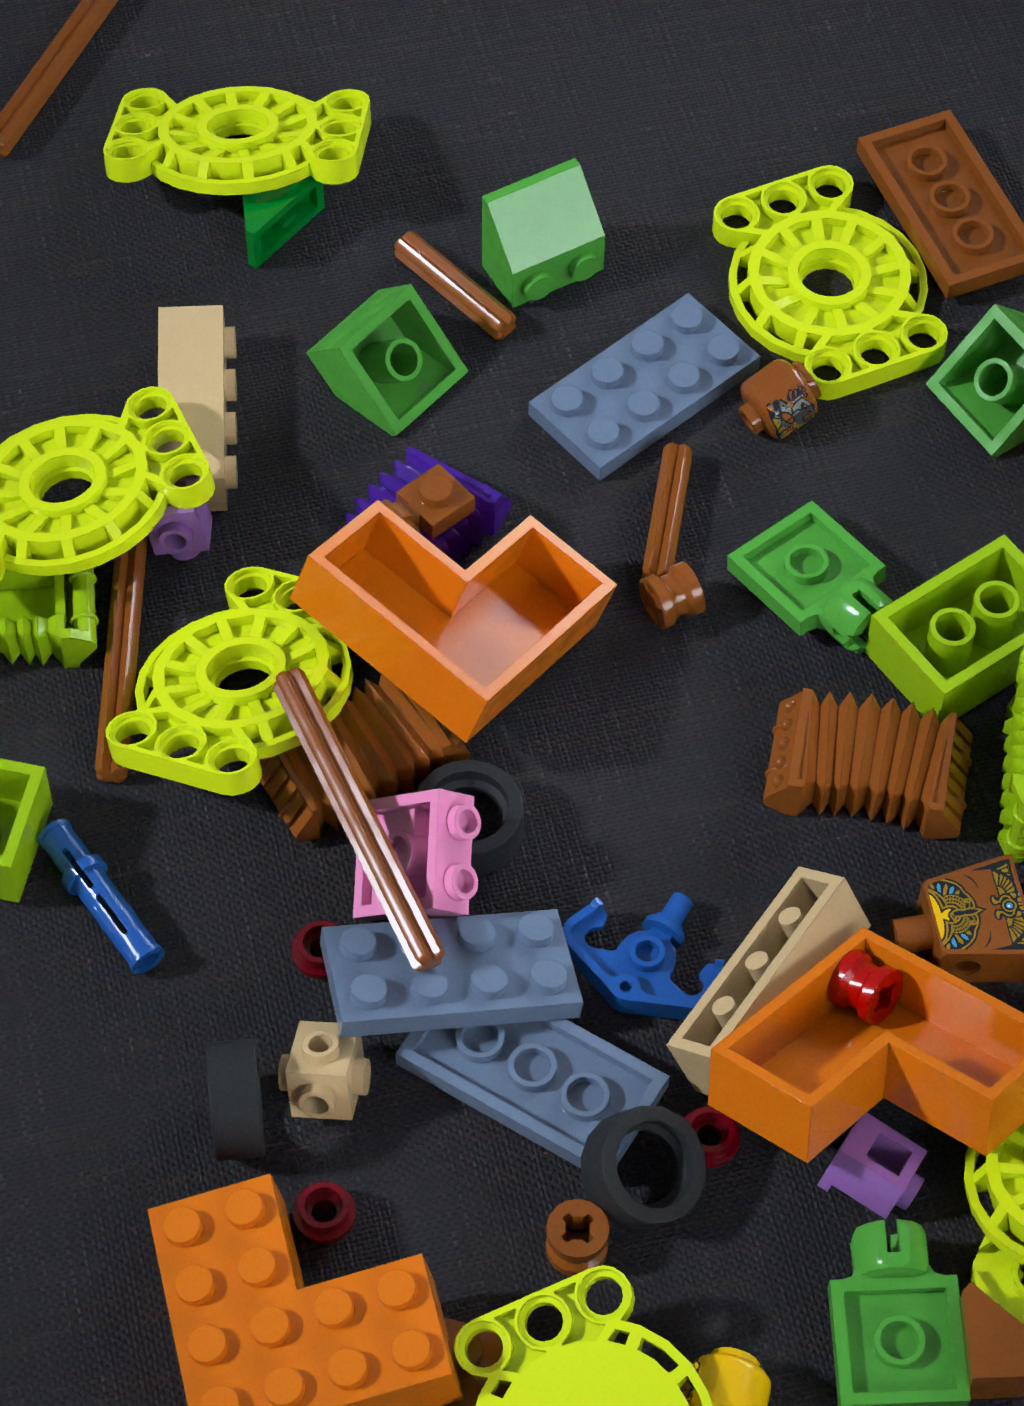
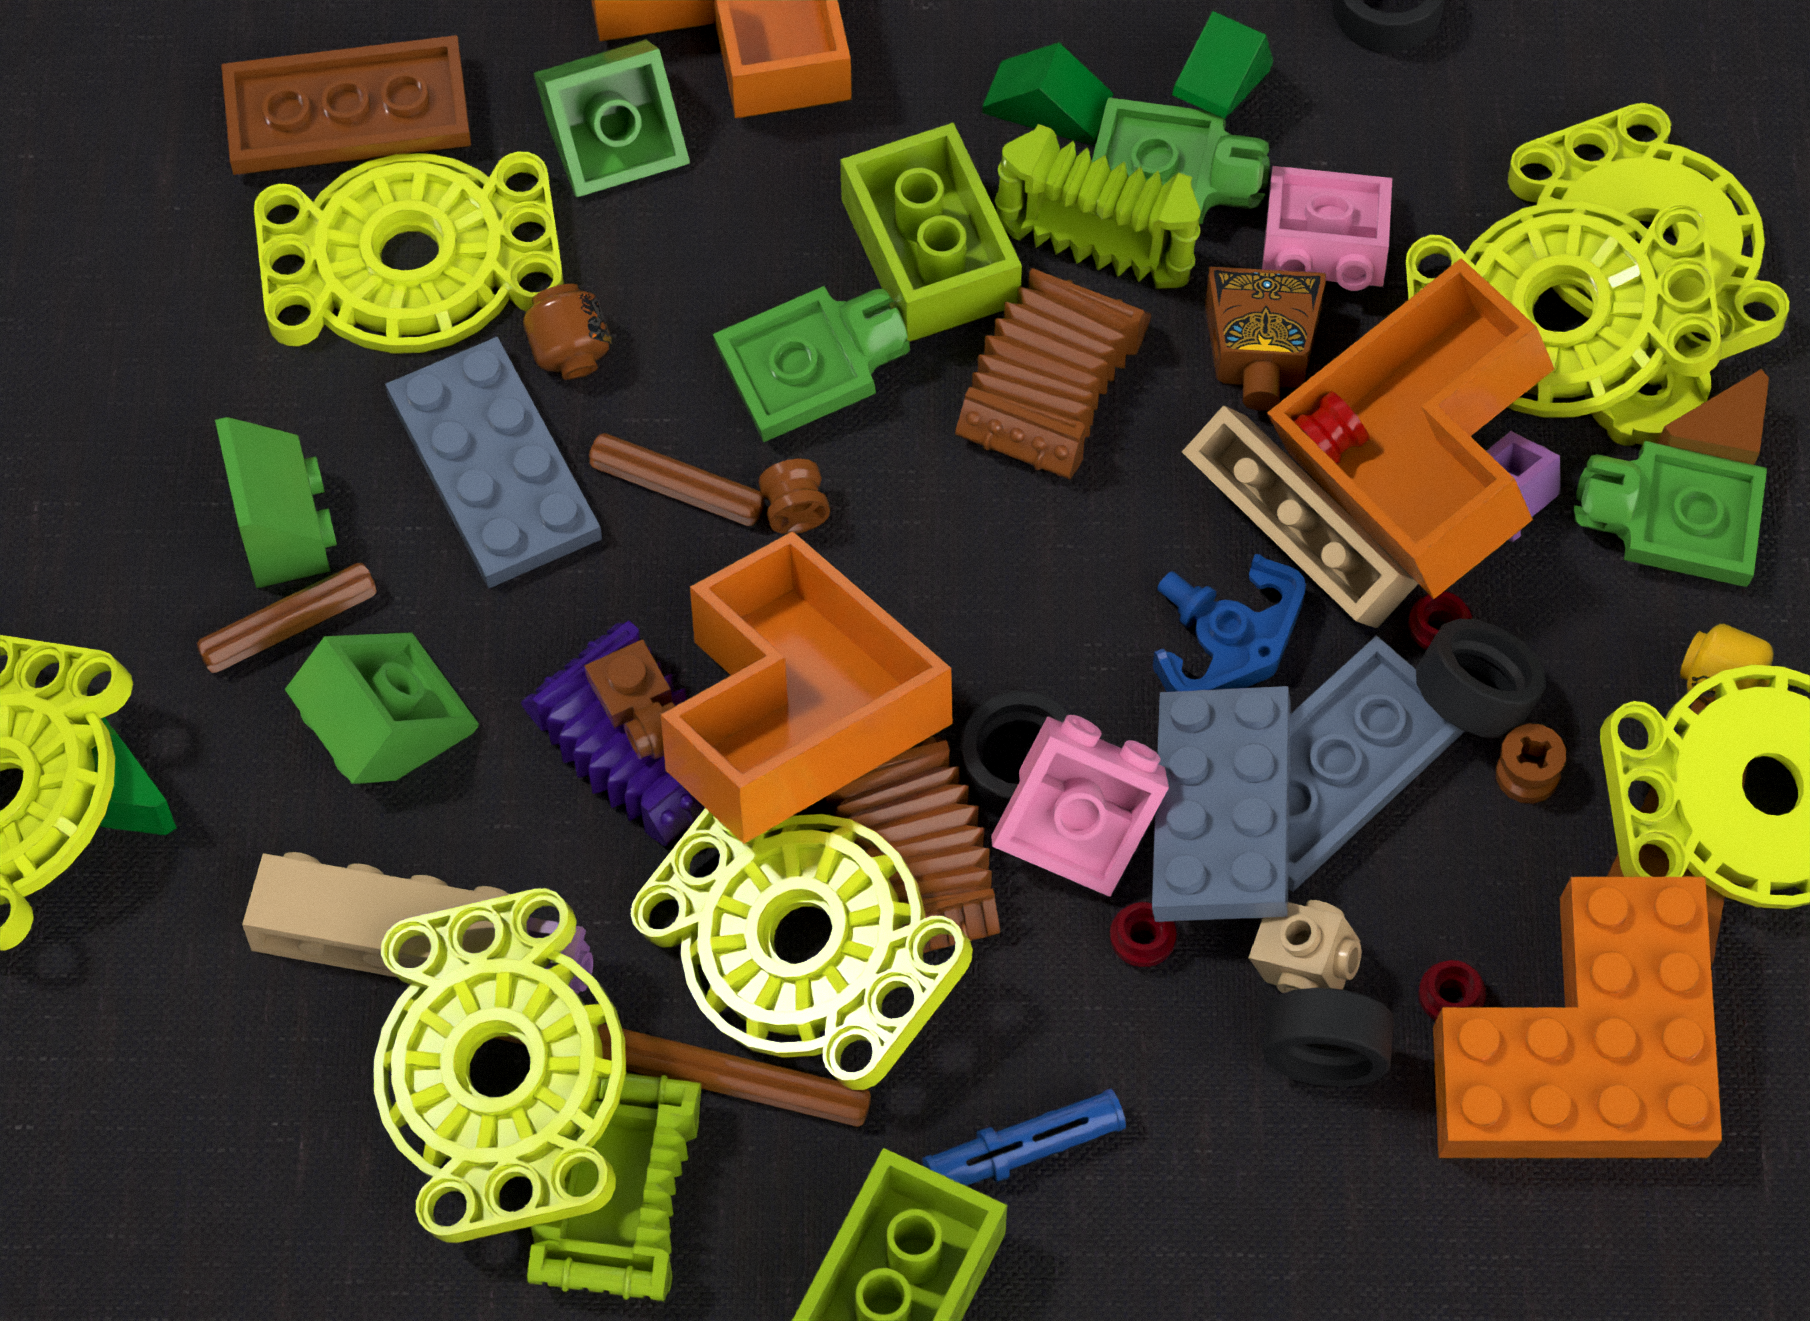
camera: 75 degrees left, 5 degrees up
(359, 820) = (1044, 833): axle -> none

